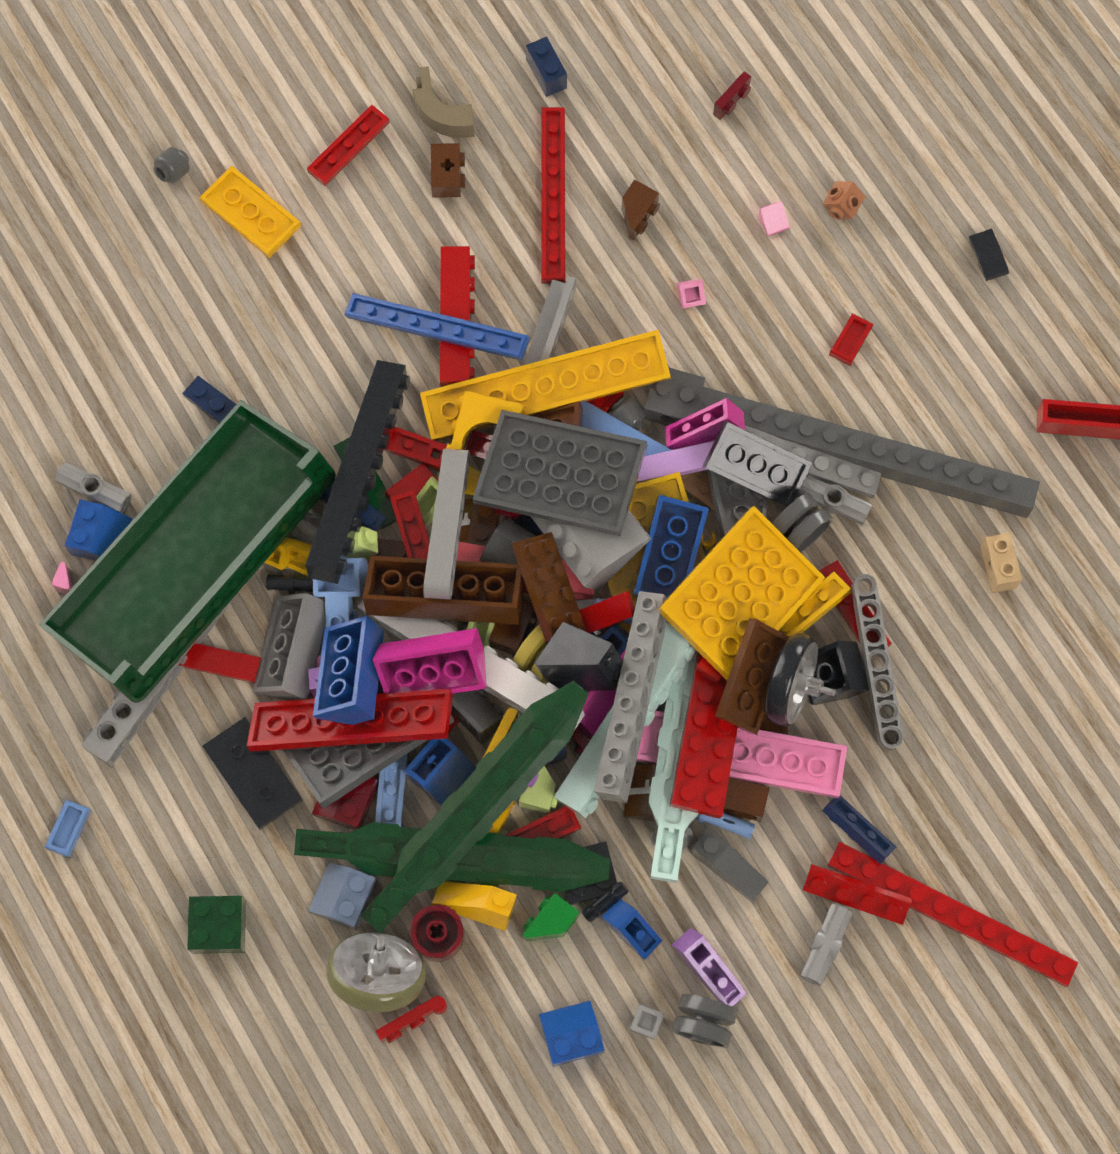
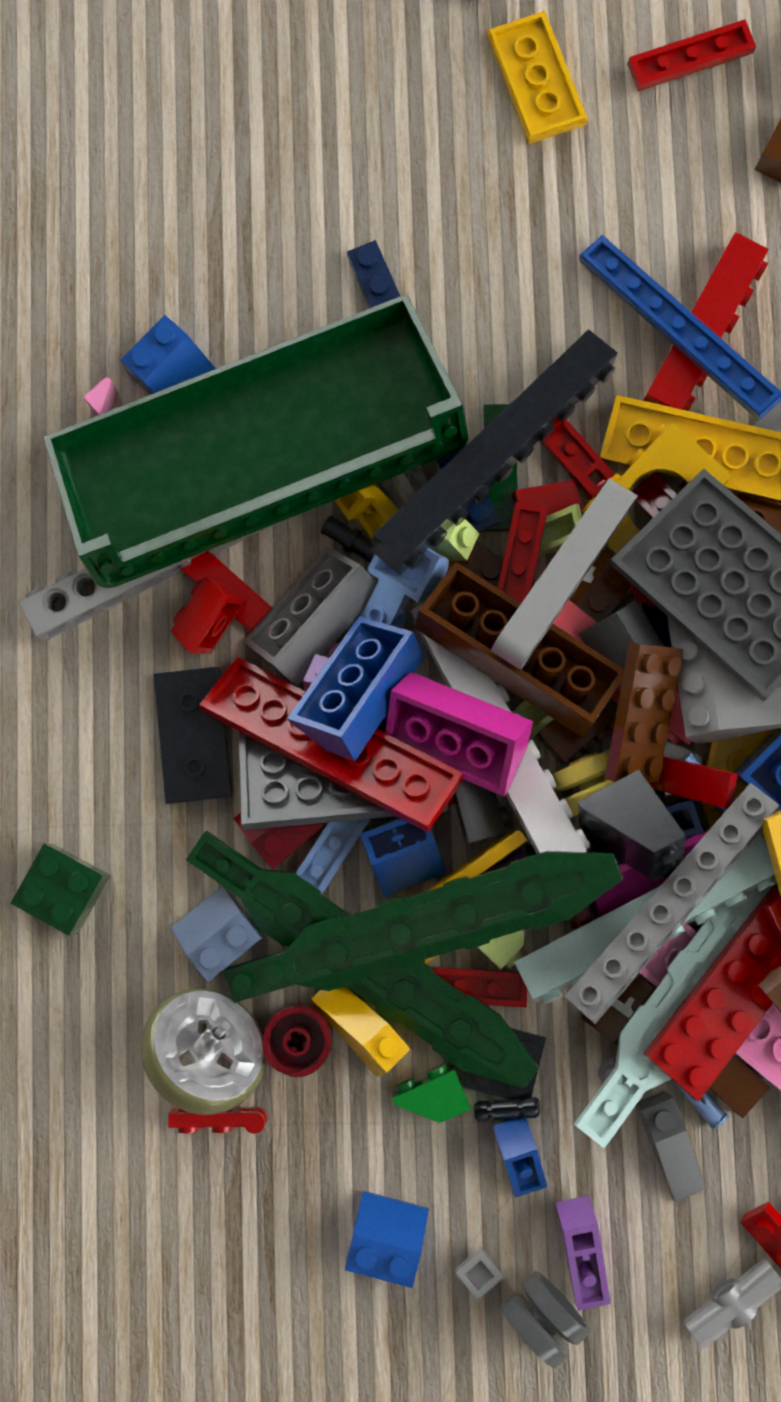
camera: 30 degrees right, 10 degrees up
(81, 481) = (181, 295): light grey piece -> none
(218, 684) = (206, 616): none -> red slope

